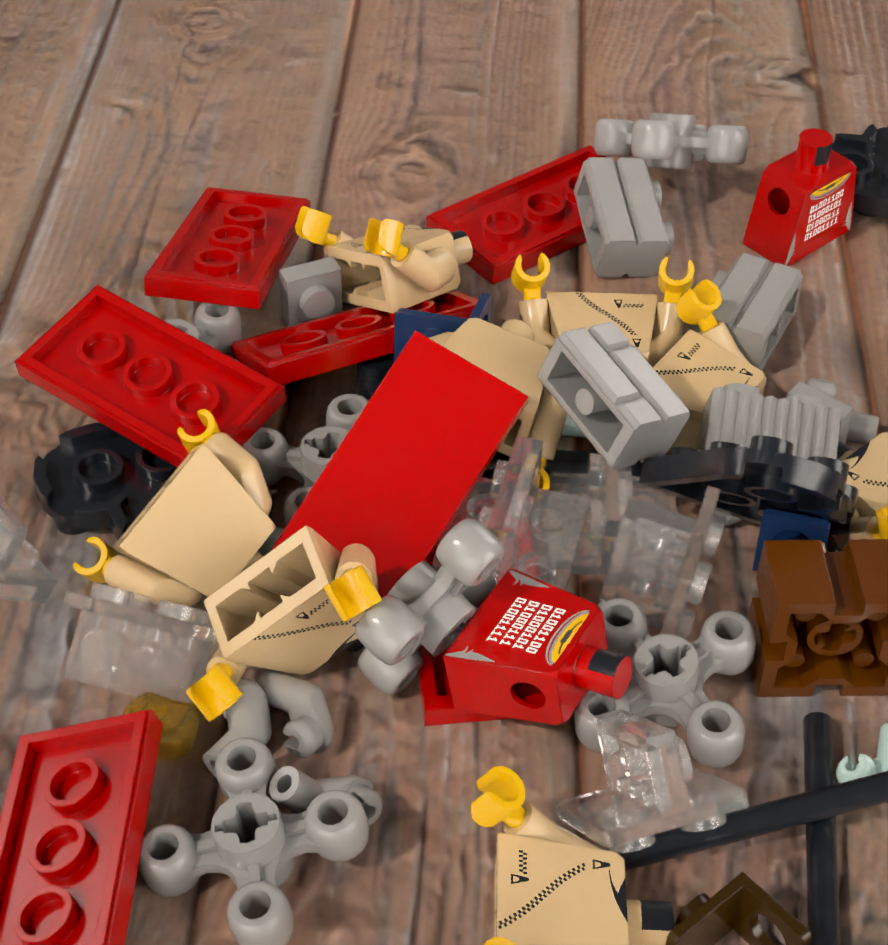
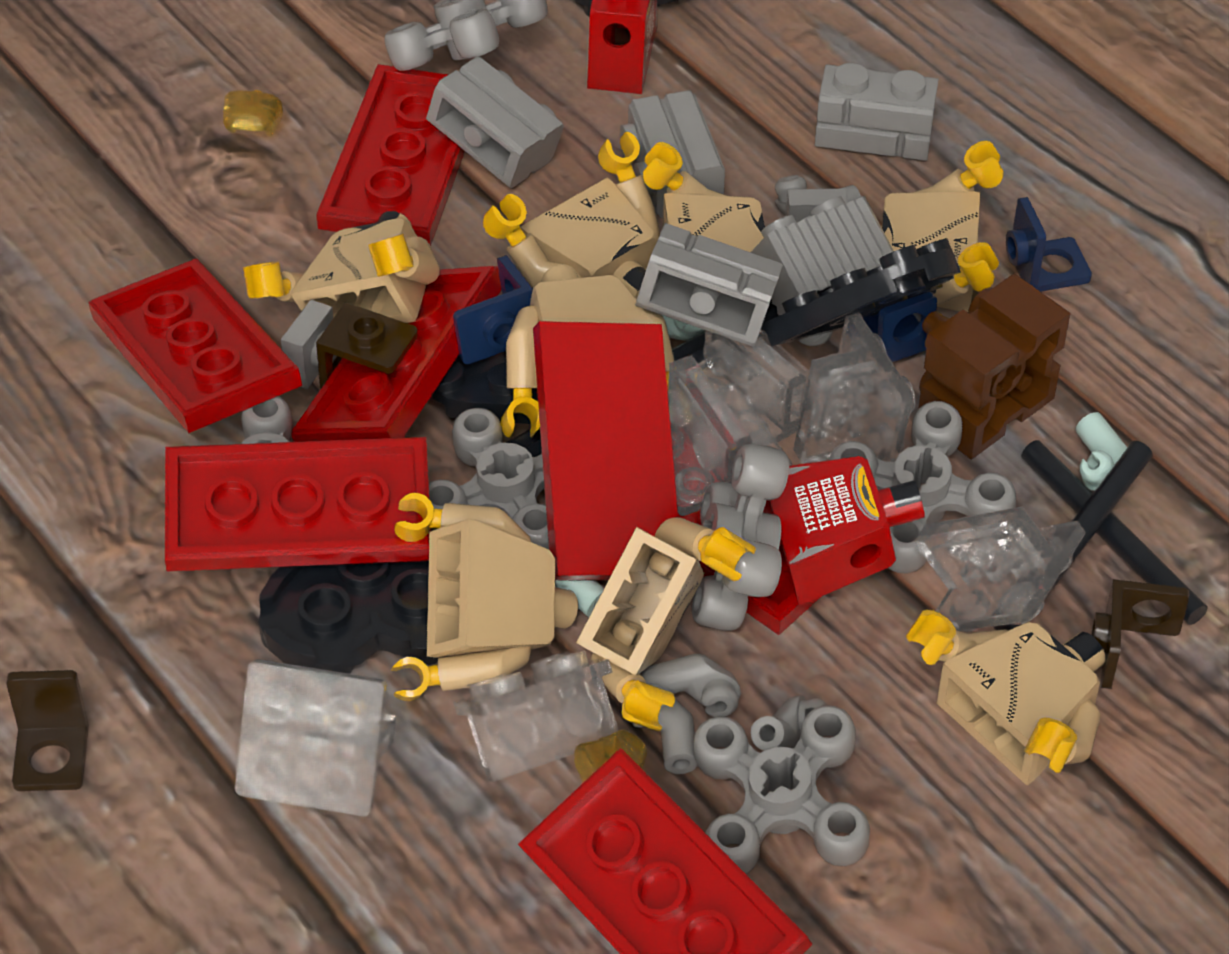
camera: 40 degrees left, 5 degrees up
(335, 302) = (364, 339): none -> dark brown bracket
(462, 130) = (252, 111): none -> clear yellow piece

